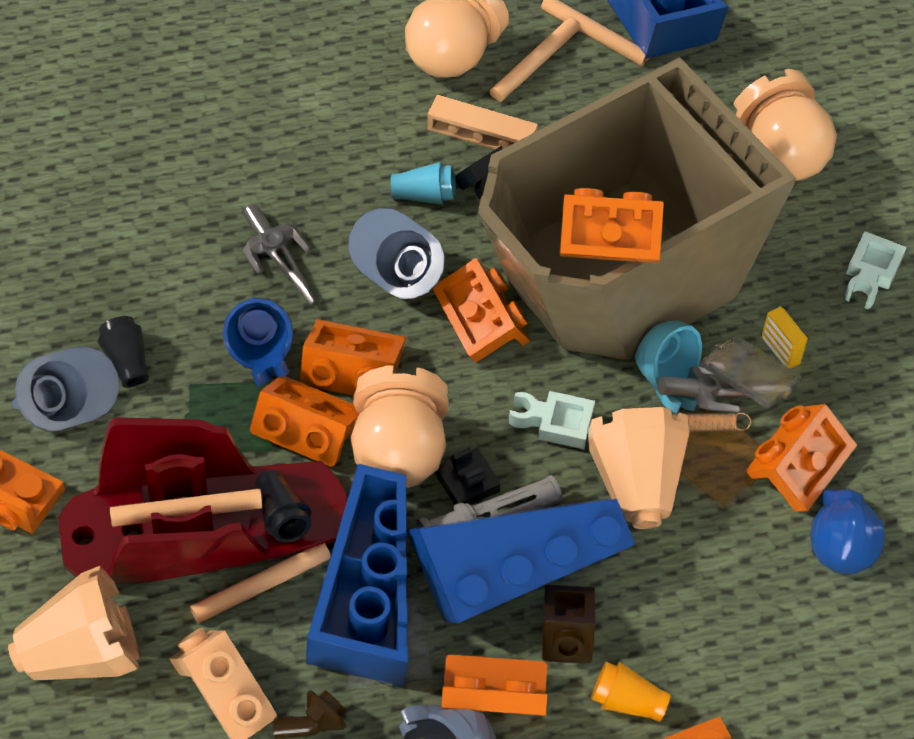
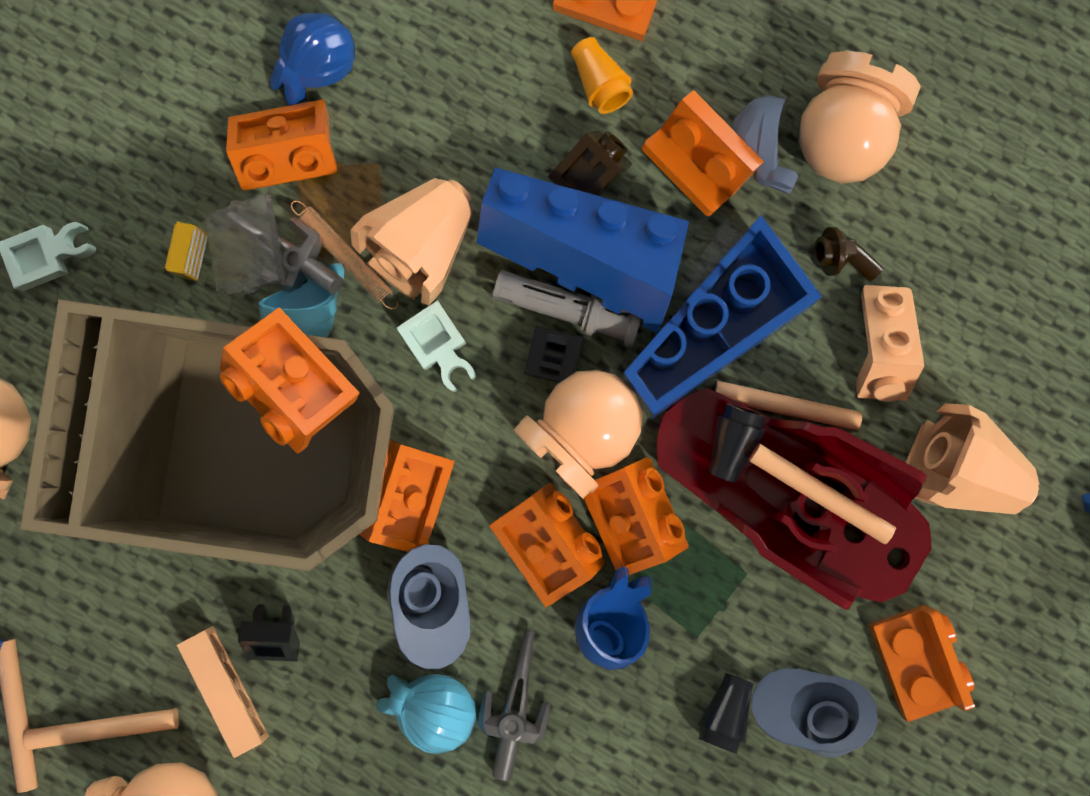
camera: 135 degrees left, 30 degrees up
(332, 208) = (431, 711): none -> medium azure piece
(425, 184) = (330, 669): medium azure cone -> none

